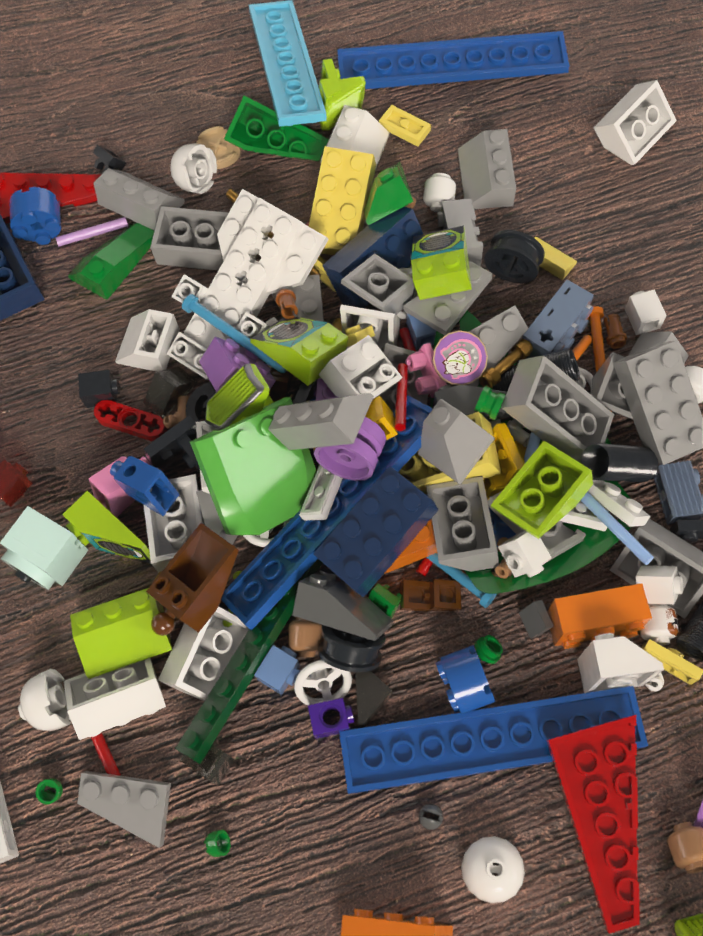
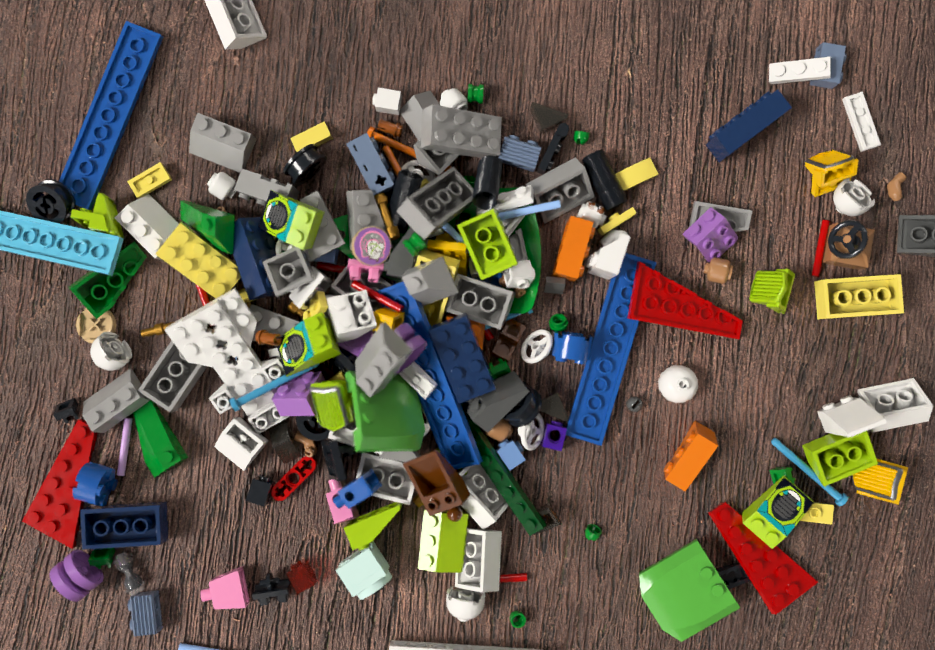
camera: 70 degrees left, 20 degrees up
(128, 802) = (545, 575): light grey wing -> none
(332, 42) = (57, 198): none -> black wheel
(440, 638) = (540, 348): none -> white piece
(660, 583) = (572, 202): white brick -> none

